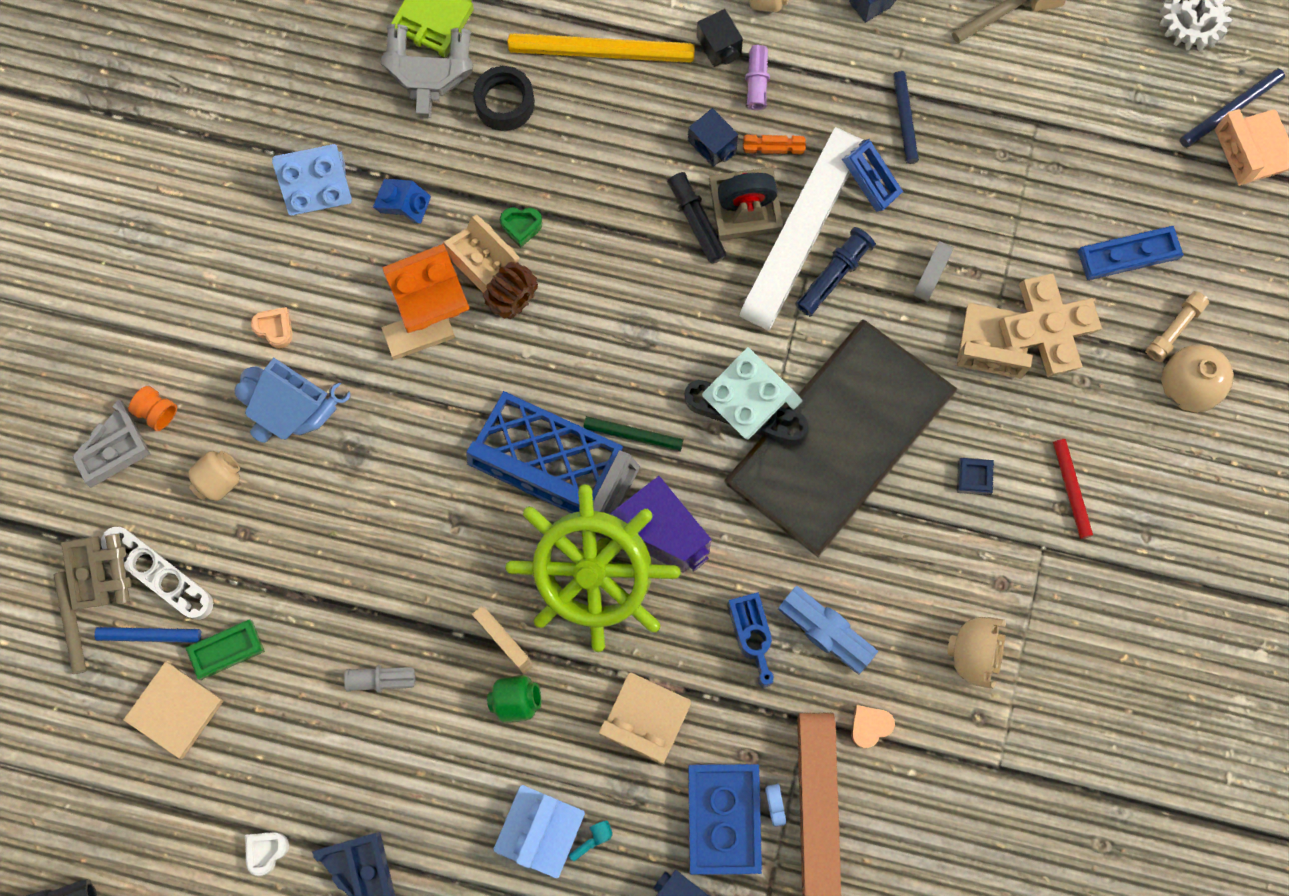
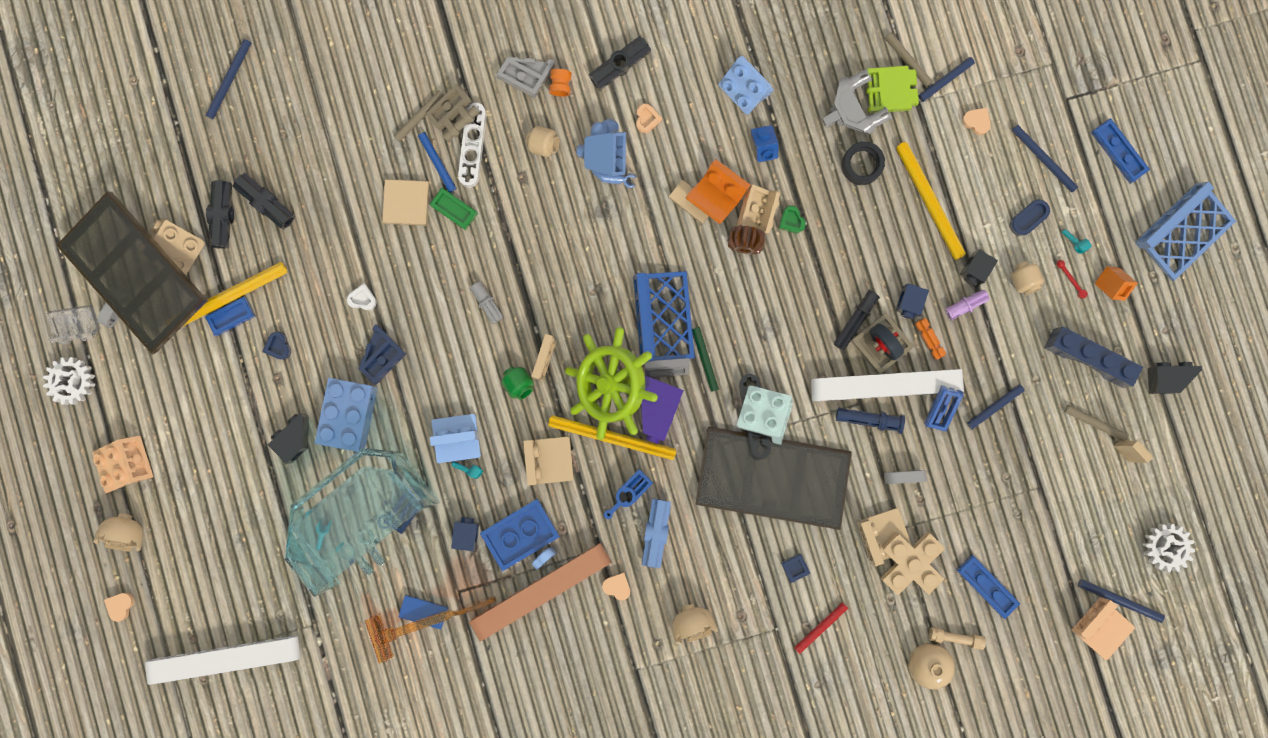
camera: 60 degrees right, 10 degrees up
(181, 336) = (629, 54): none -> black piece
(665, 615) = (612, 437): none -> yellow axle

